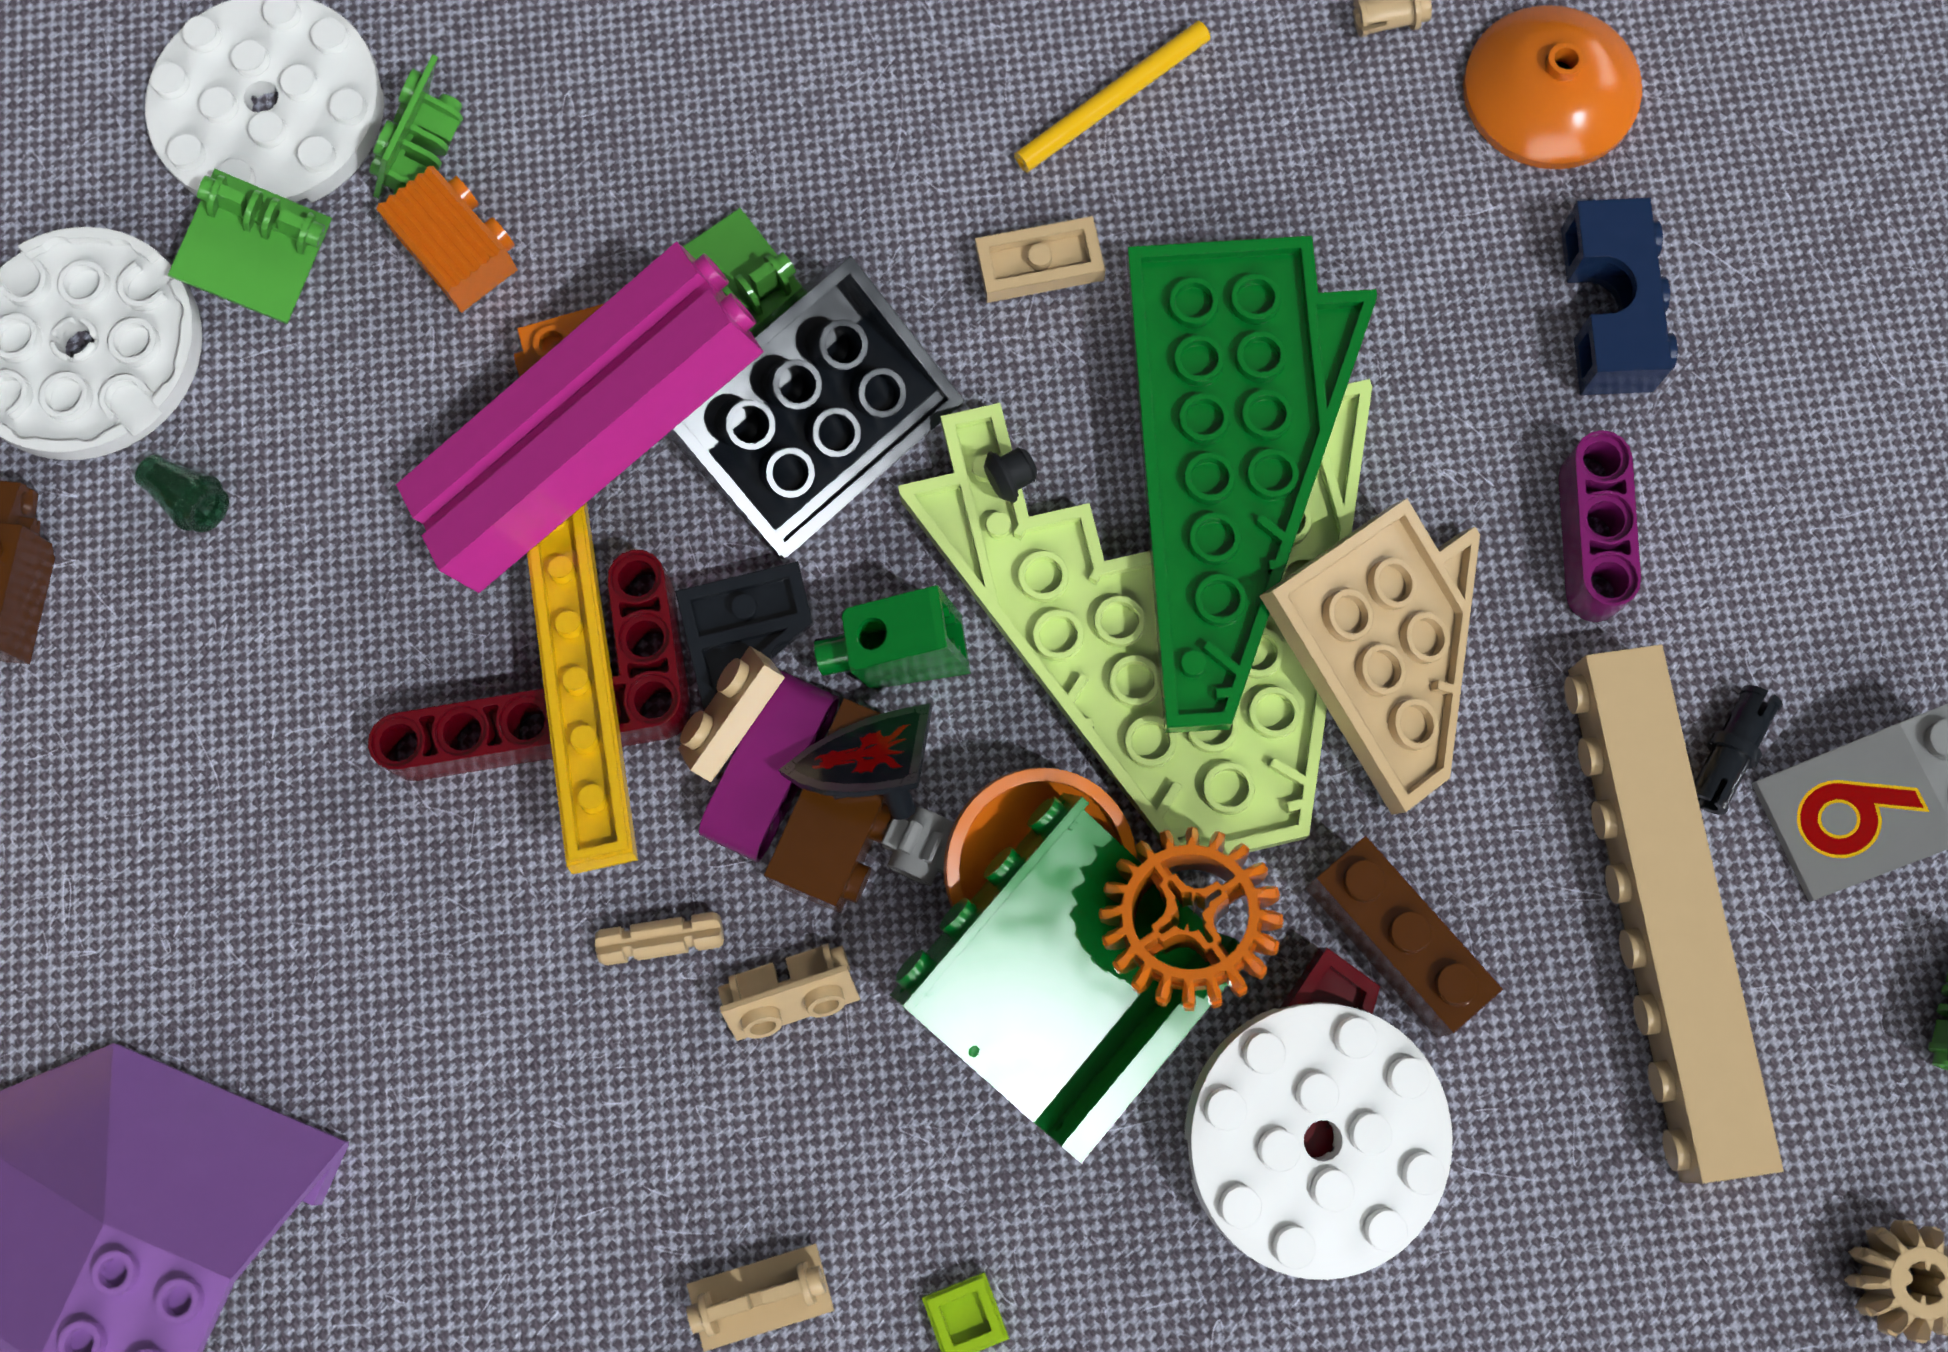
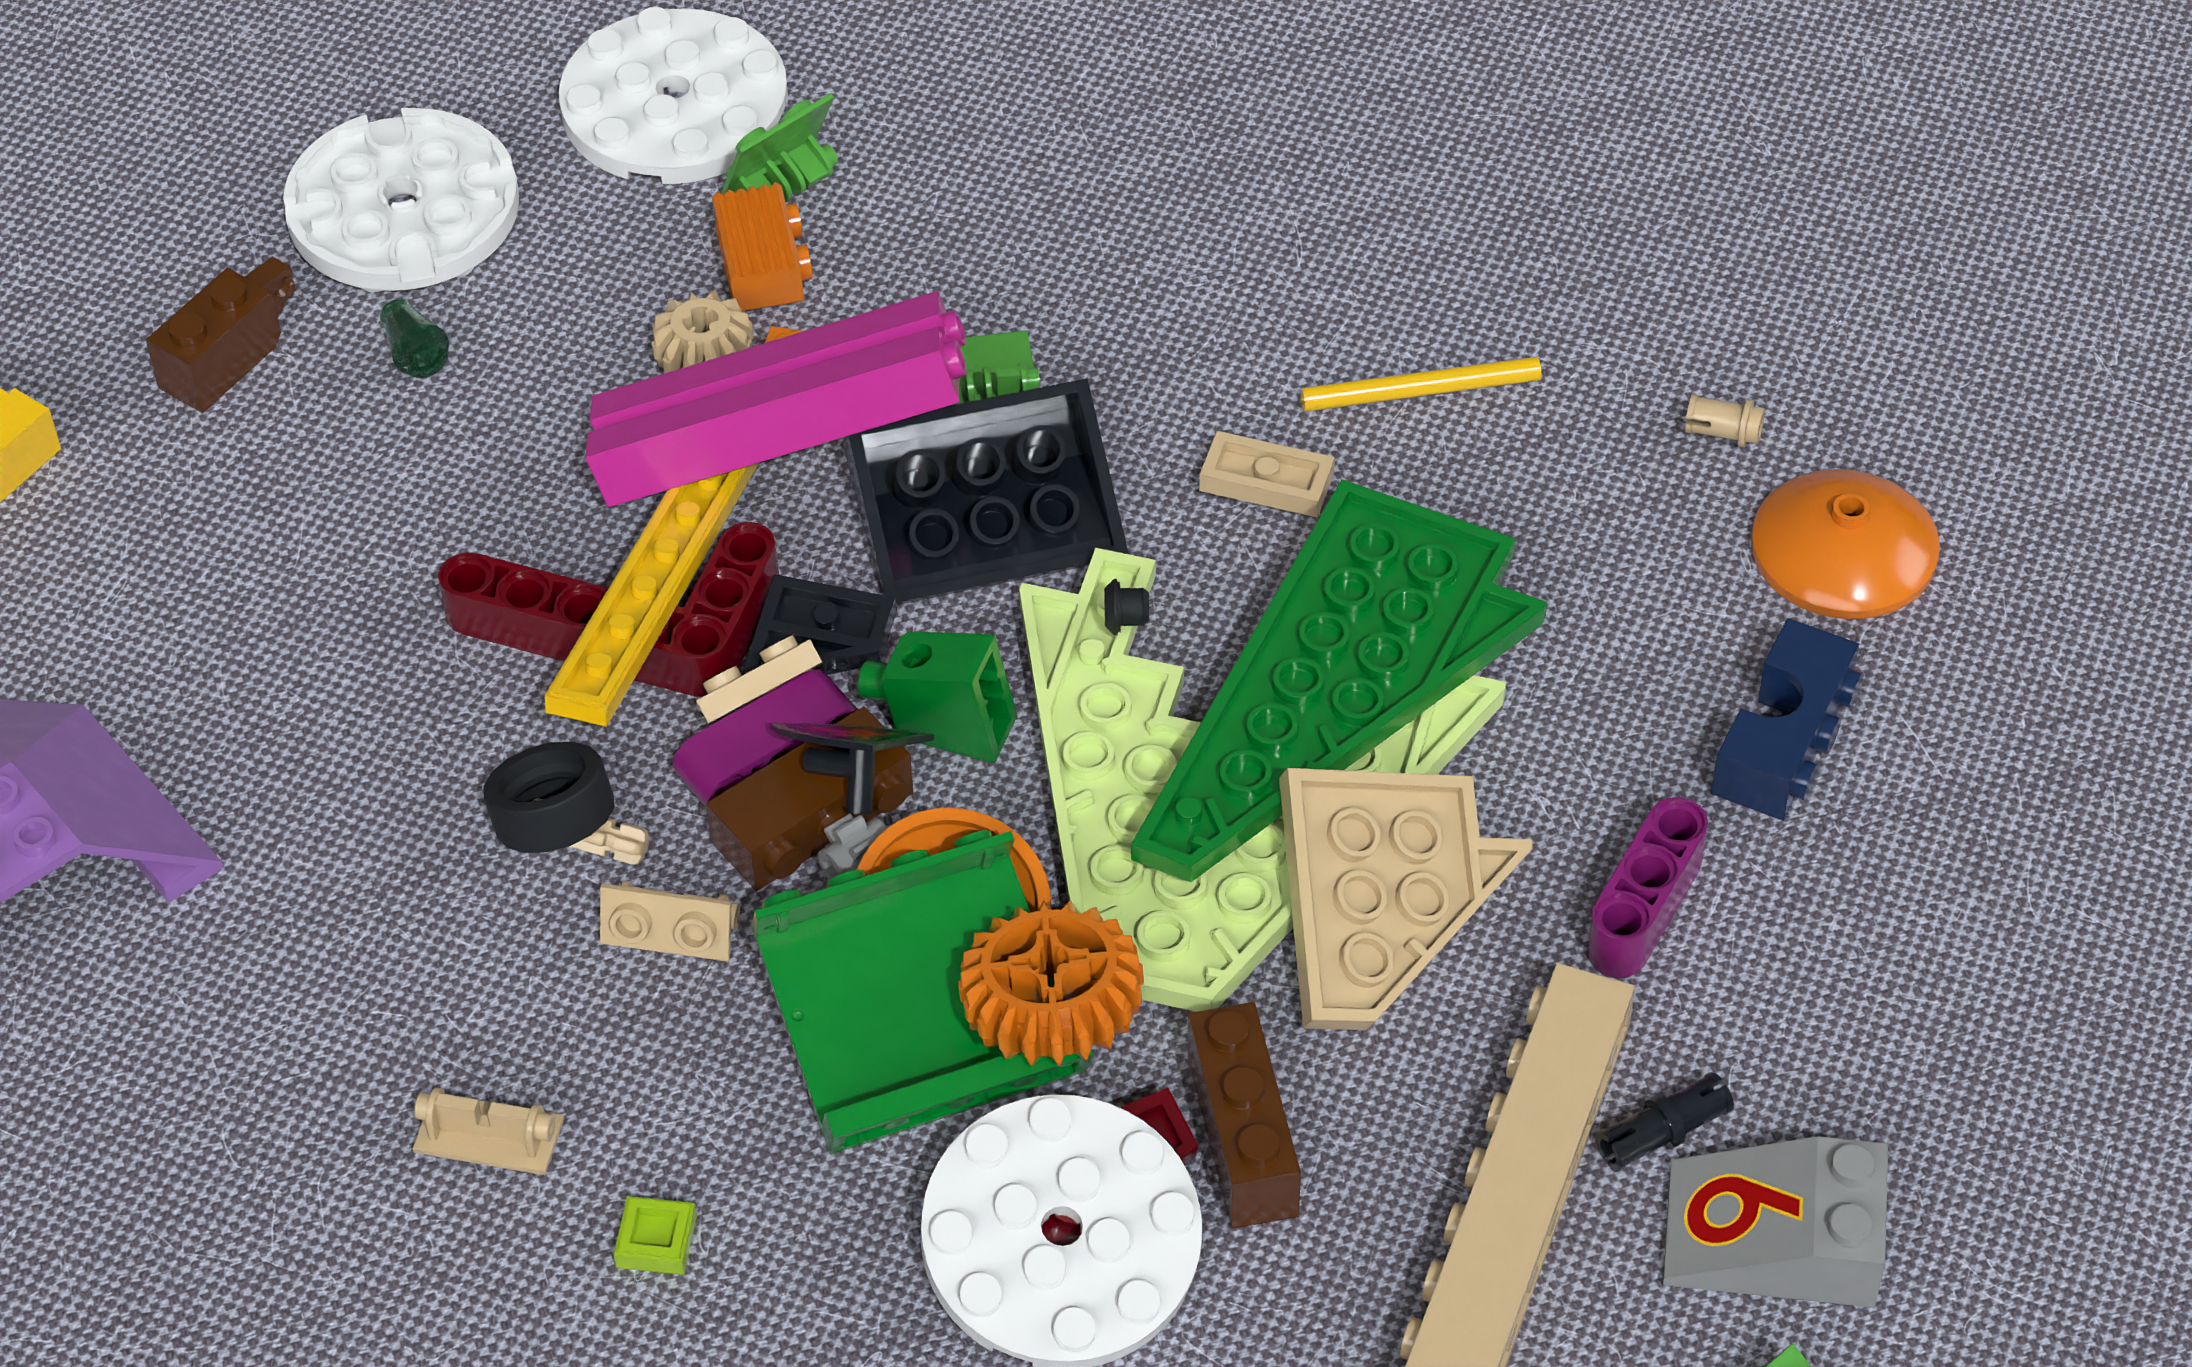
camera: 25 degrees right, 25 degrees down
(249, 246) = (590, 186): bright green hinge -> none
(444, 346) = (699, 331): none -> tan gear
(576, 913) = (554, 822): none -> black tyre

